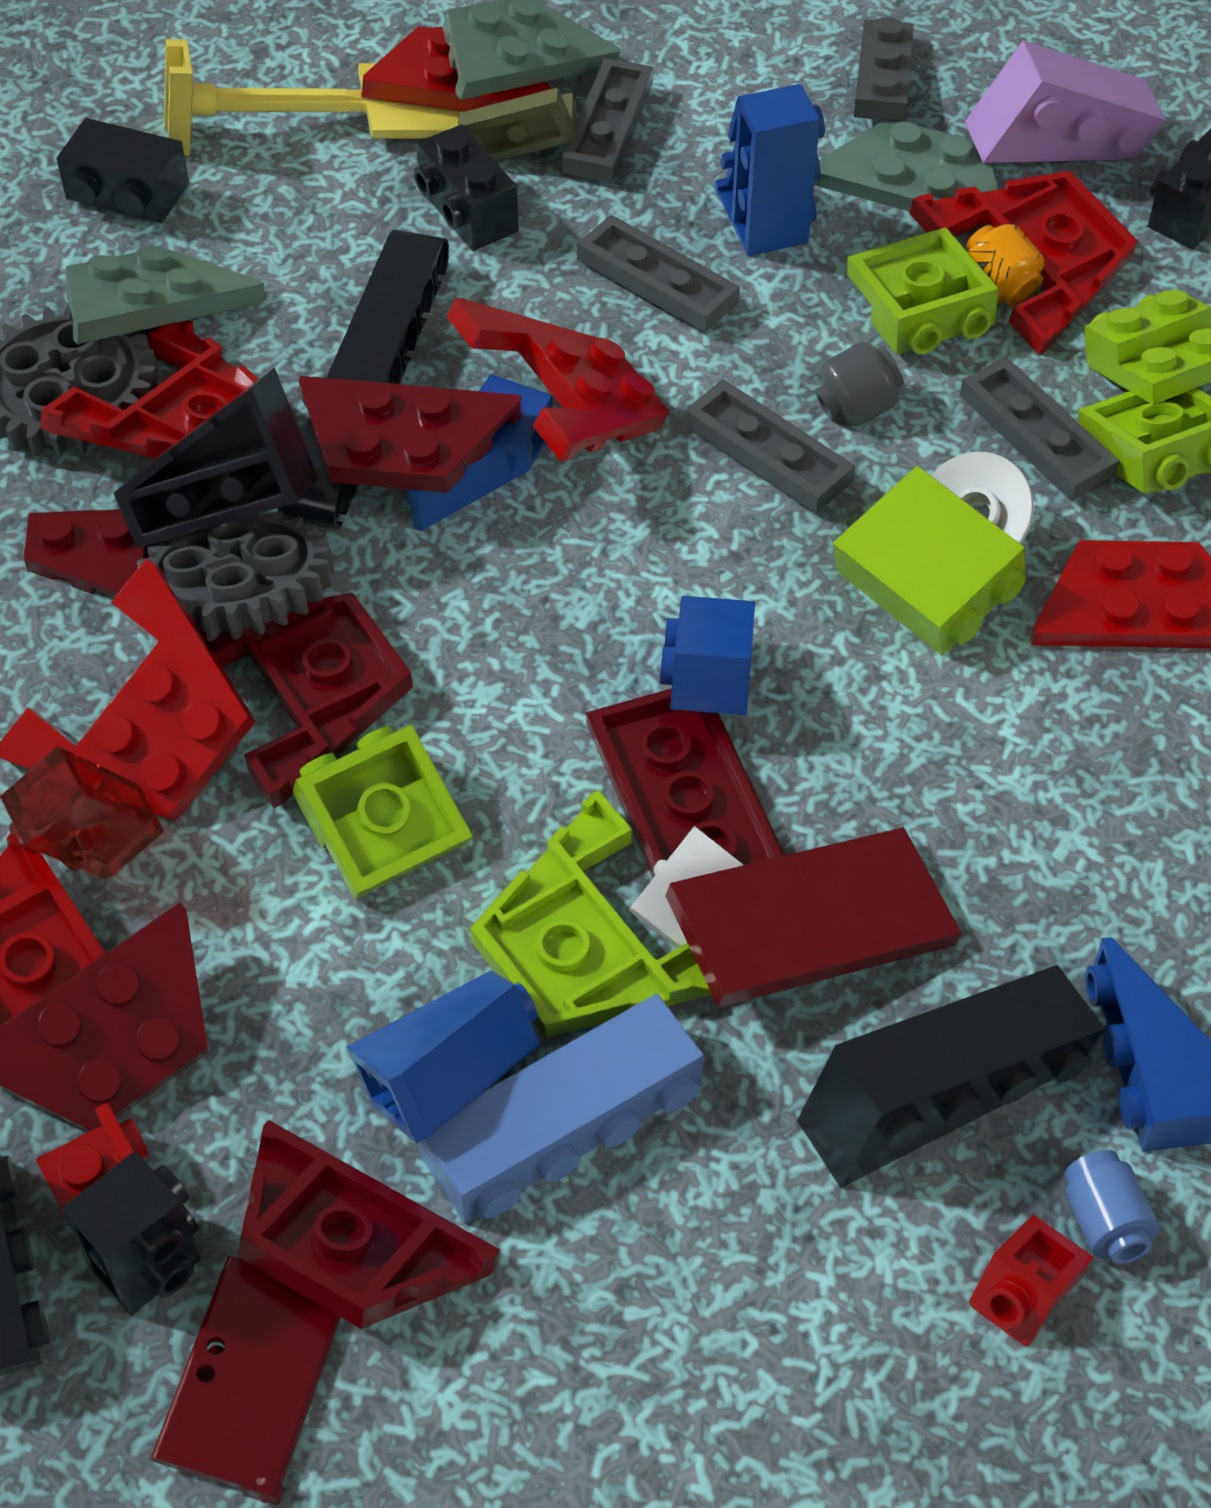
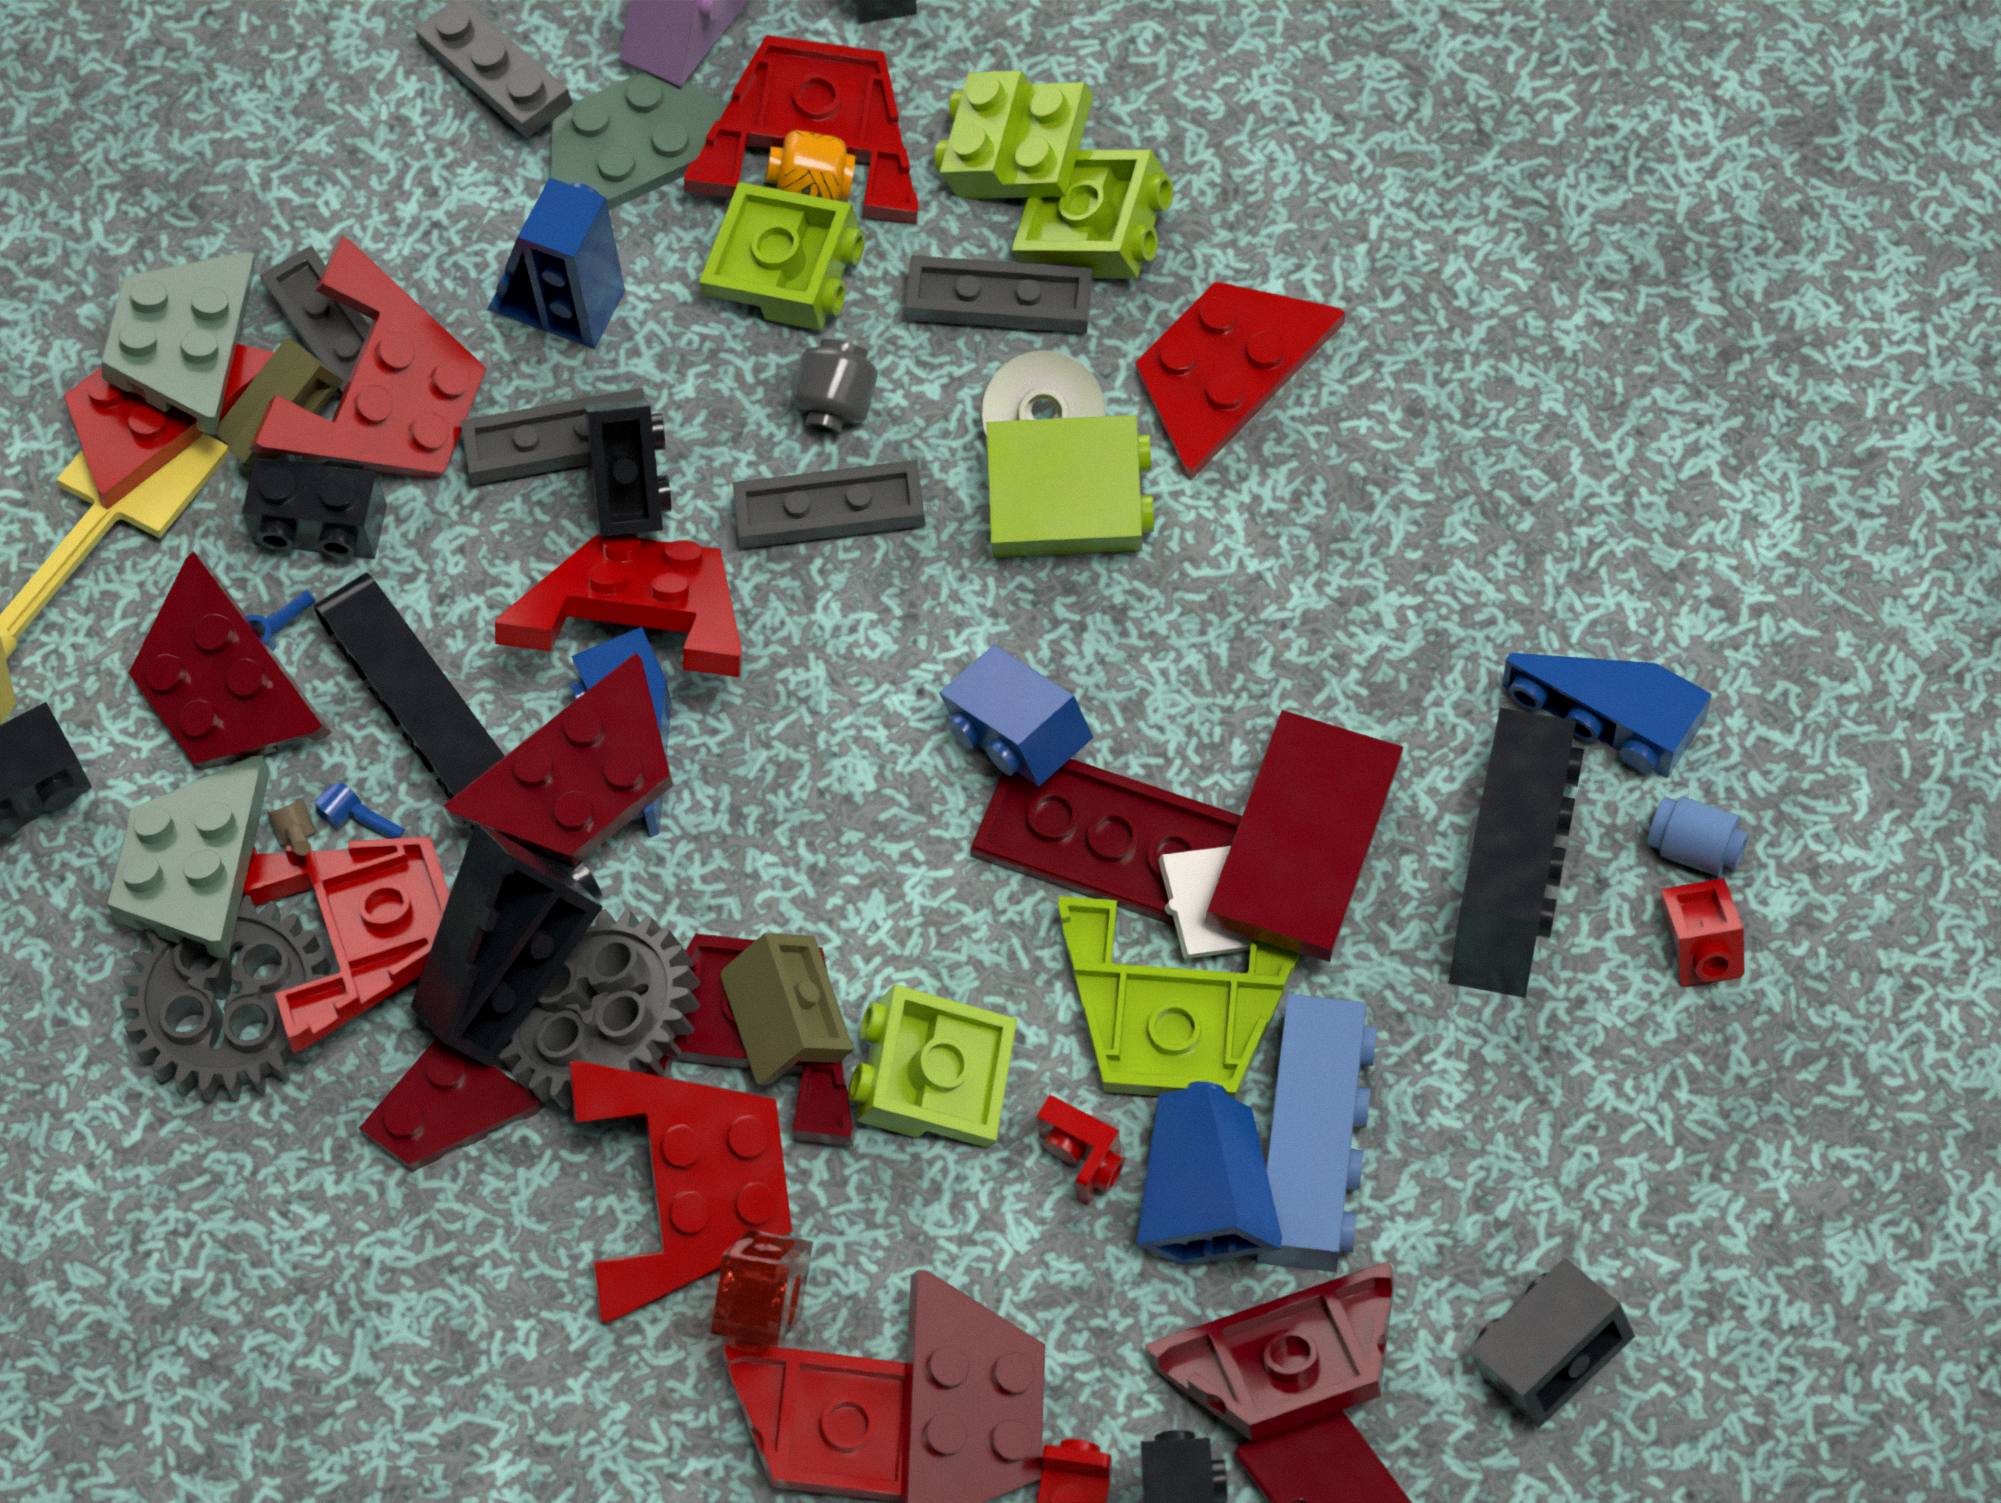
camera: 45 degrees left, 10 degrees up
(230, 330) = (293, 825): none -> dark tan hand
(267, 346) = (341, 802): none -> blue hand
(299, 222) = (218, 676): none -> dark red wing
(338, 675) = (785, 1005): none -> olive panel
(354, 228) = (276, 621): none -> blue hand
(405, 967) = (1077, 1135): none -> red bracket
(528, 1434) = (1551, 1342): none -> black brick
(592, 168) = (404, 390): none -> red wing
(662, 303) = (624, 467): none -> black brick

